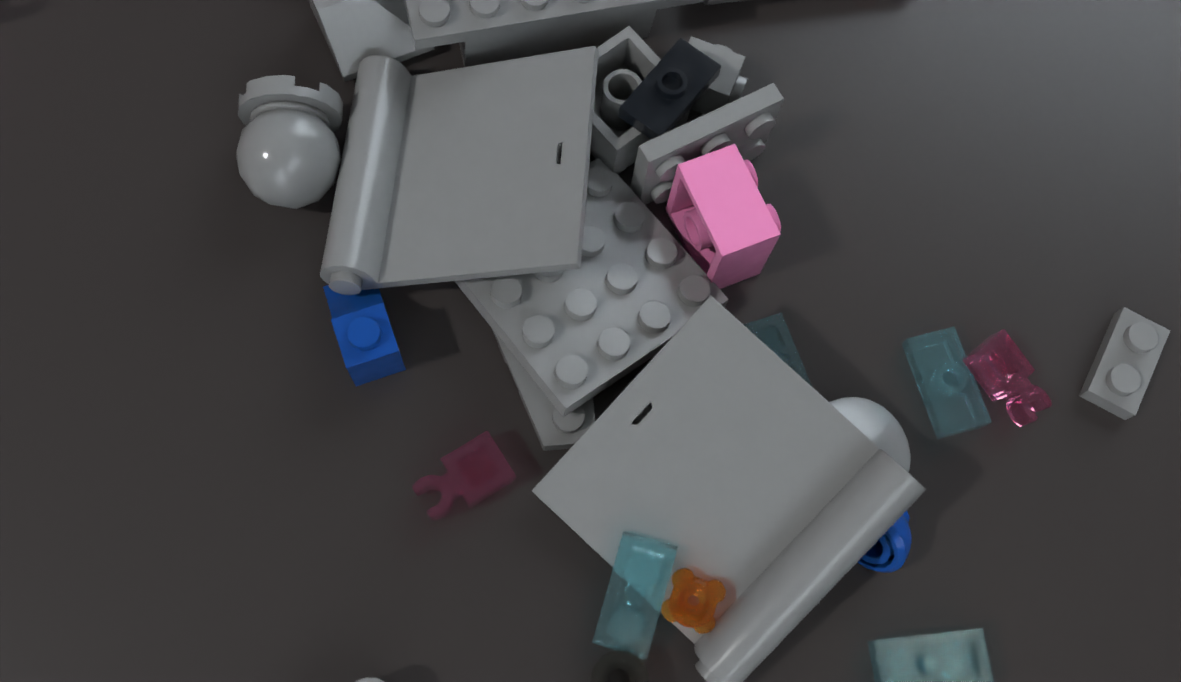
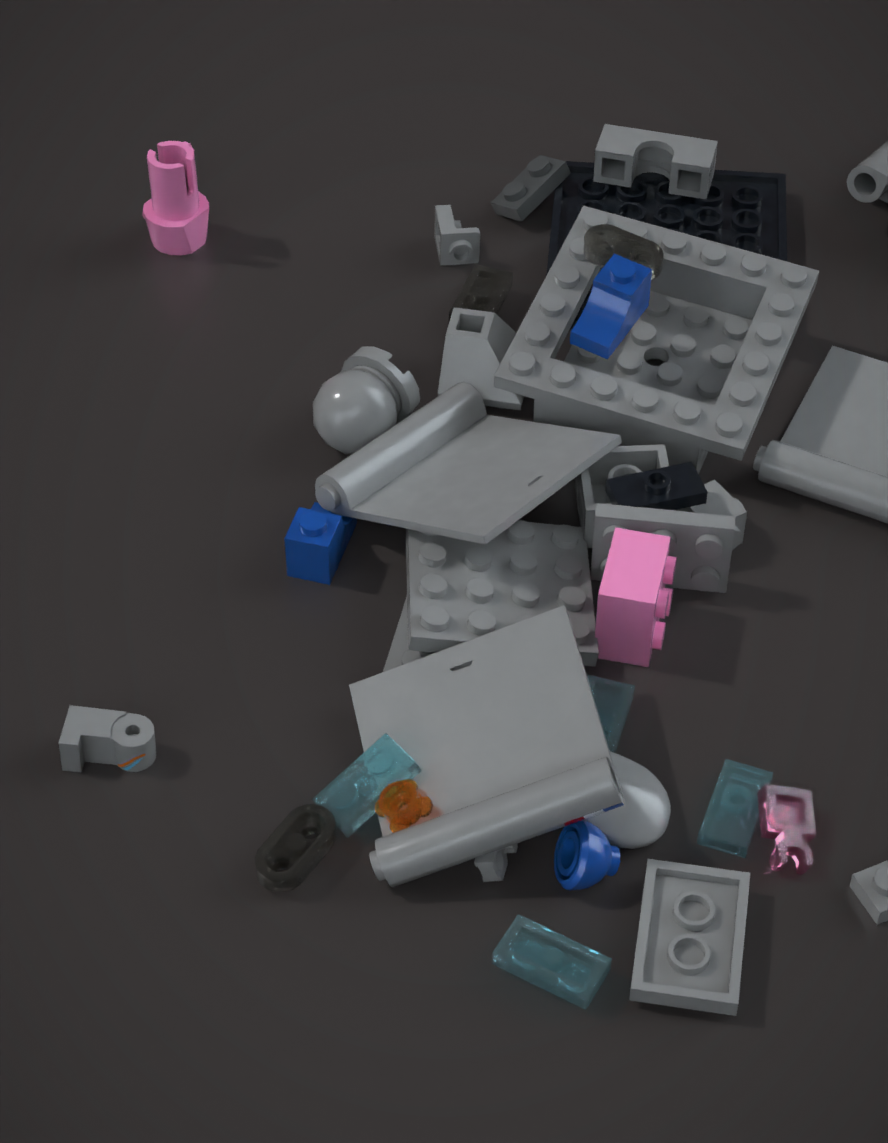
camera: 45 degrees right, 25 degrees down
(473, 471) = (316, 658): clear pink plate -> none
(1017, 551) = (691, 937): none -> light grey plate

